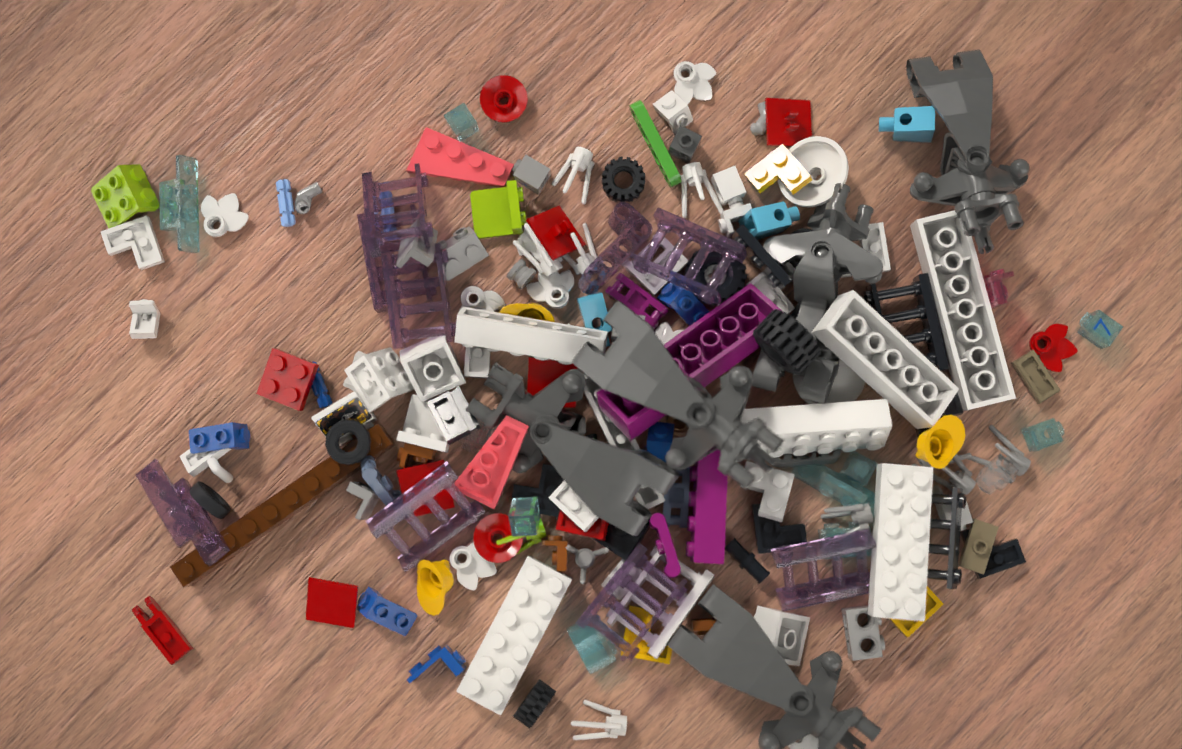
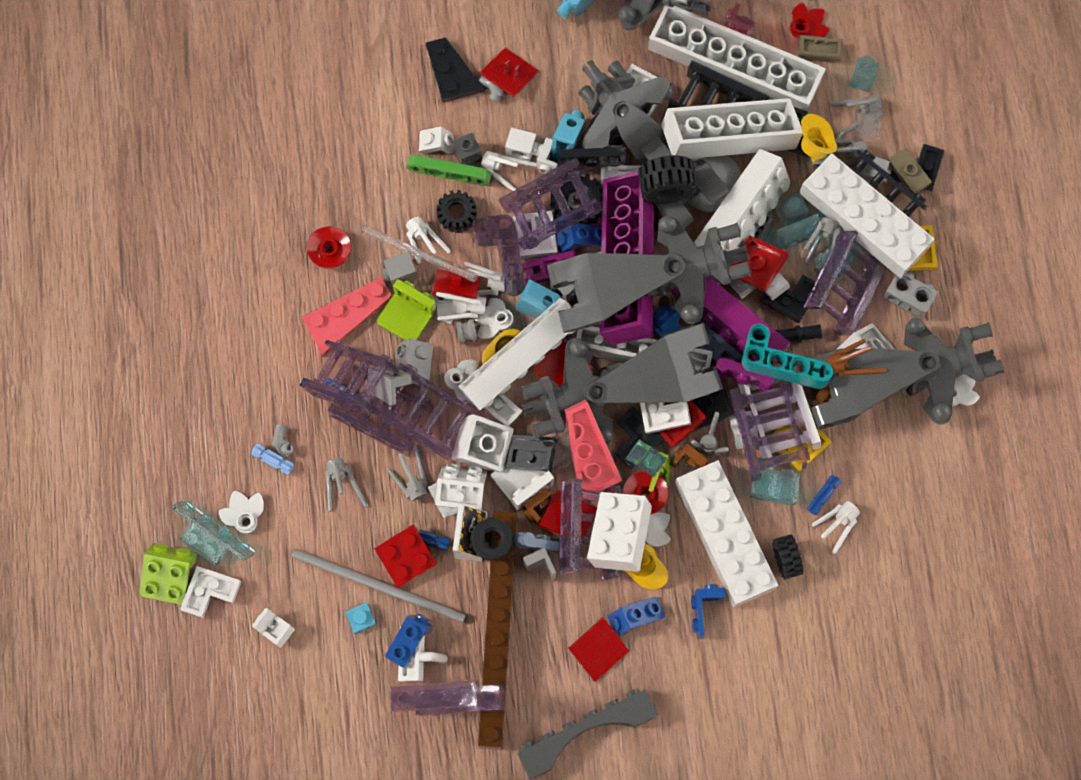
camera: 50 degrees left, 10 degrees down
(209, 383) = (360, 618): none -> medium azure plate
(210, 500) = (451, 676): black tyre -> none
(248, 376) = (378, 585): none -> light grey piece
(299, 669) = (631, 712): none -> dark grey arch
(314, 263) = (336, 472): none -> light grey plant
(350, 339) = (415, 488): none -> light grey plant
(437, 545) = (619, 531): none -> white brick
(461, 122) = (321, 288): clear light blue brick -> none
(557, 180) = (458, 270): none -> clear piece
(618, 691) = (823, 495): none -> blue axle
(696, 84) = (429, 112): white plate -> none
(700, 577) = (786, 360): none -> teal beam
(735, 624) = (839, 360): none -> dark orange plant
(748, 72) = (451, 72): none -> black wing
(776, 166) = (535, 99): plate -> none
(783, 483) = (763, 263): none -> red plate
(818, 157) = (547, 77): white dish -> none

